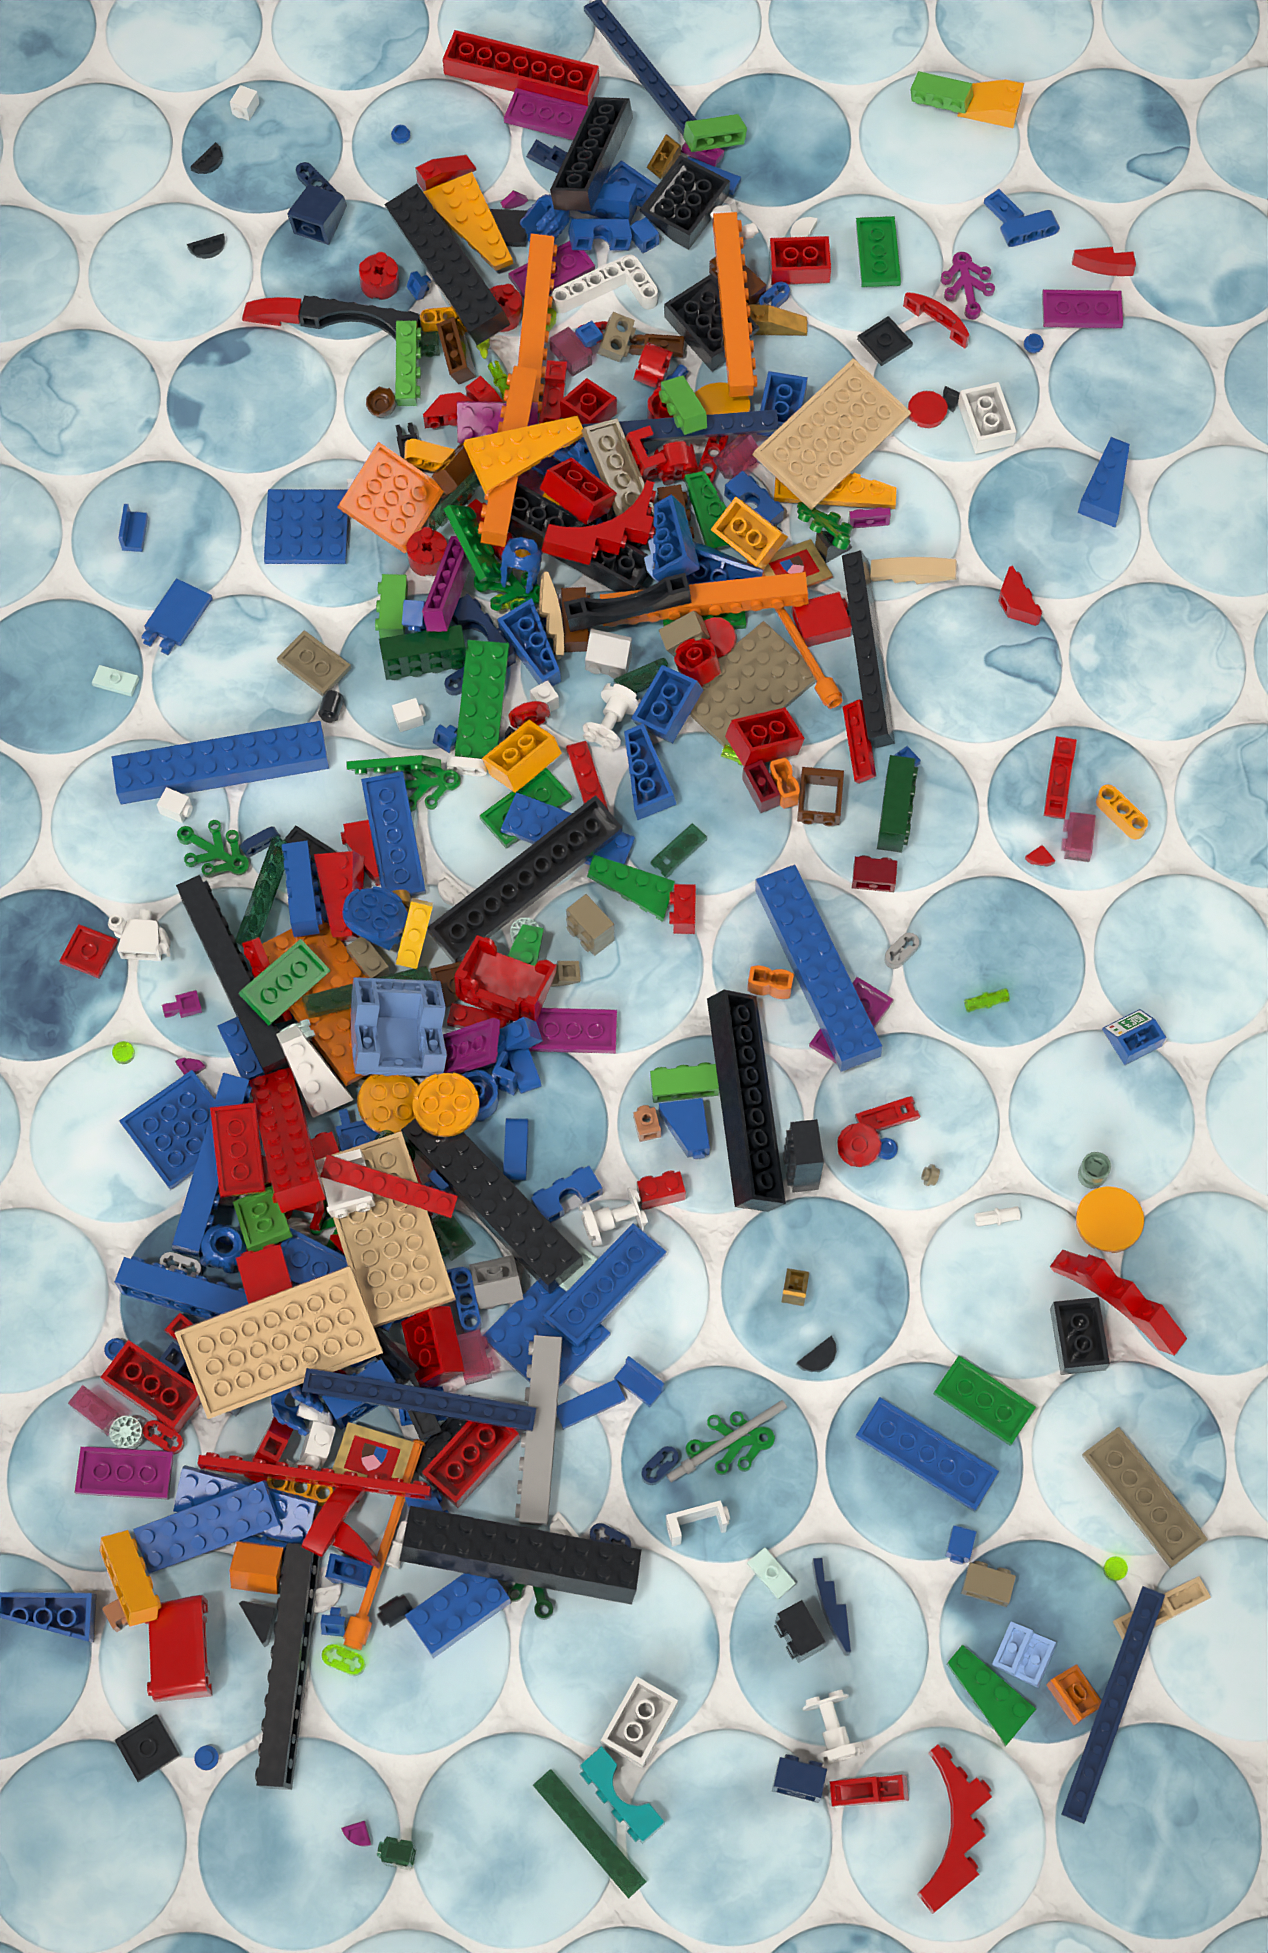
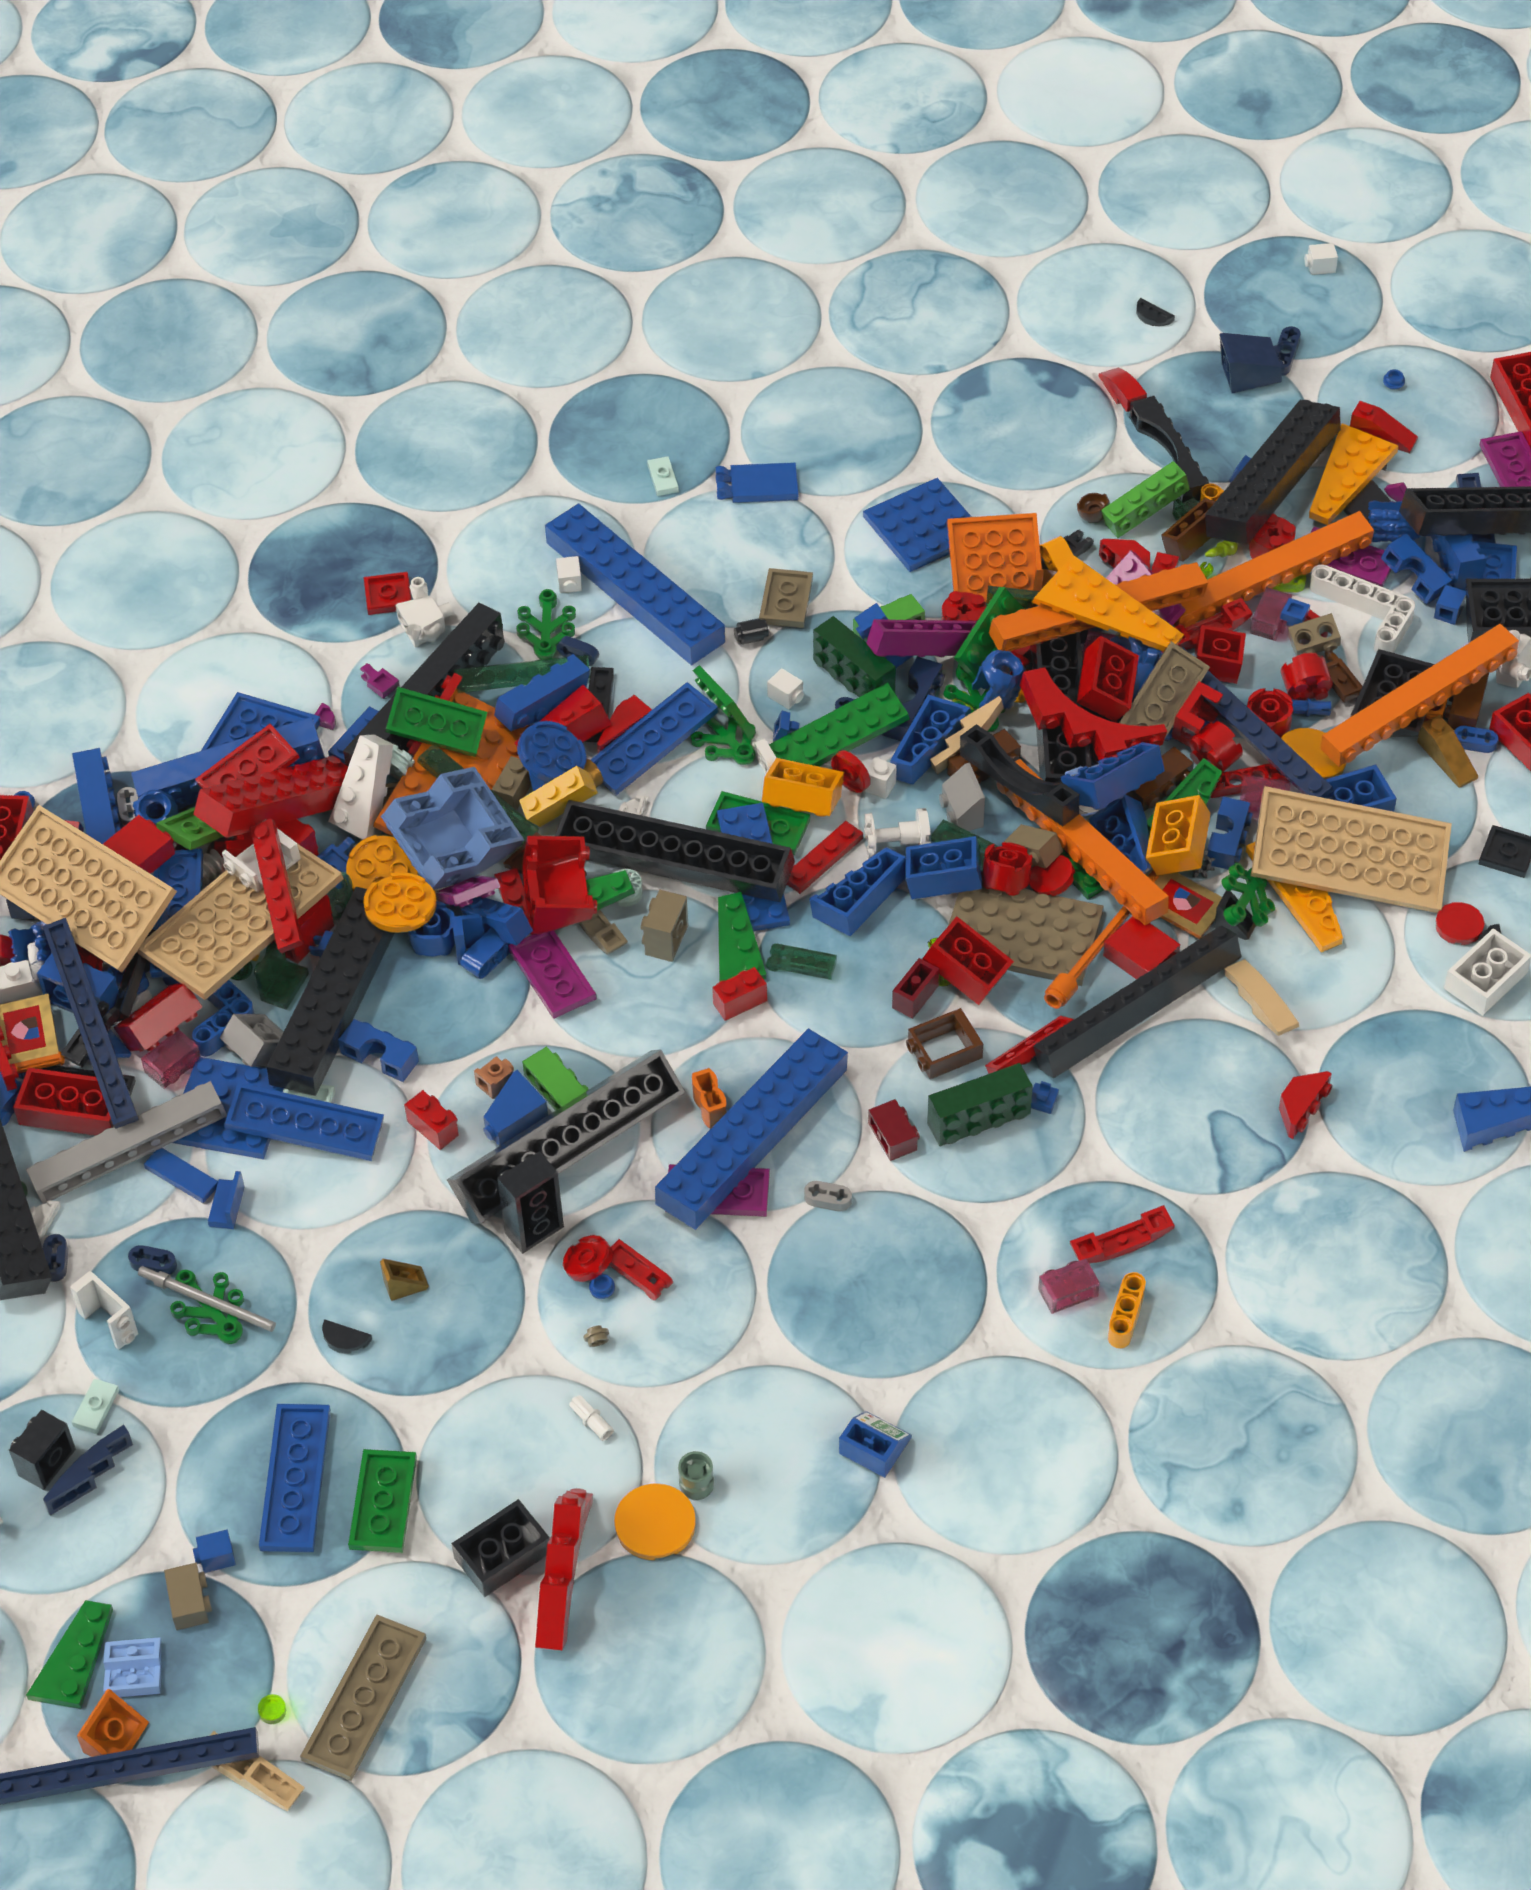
camera: 60 degrees right, 15 degrees down
(123, 1052) = (307, 665): clear neon green tile -> none
(132, 530) = (819, 407): blue panel -> none
(208, 161) = (1242, 269): black tile -> none
(379, 276) = (1225, 438): red brick -> none
(516, 1149) = (400, 988): blue beam -> none
(604, 1218) = (361, 1080): white piece -> none
(683, 405) = (1269, 709): bright green brick -> none
(781, 773) = (934, 1003): orange brick -> none
(869, 518) = (1289, 933): magenta plate -> none
(986, 1000) = (824, 1294): clear neon green pin -> none
(1040, 856) = (1022, 1265): red tile -> none

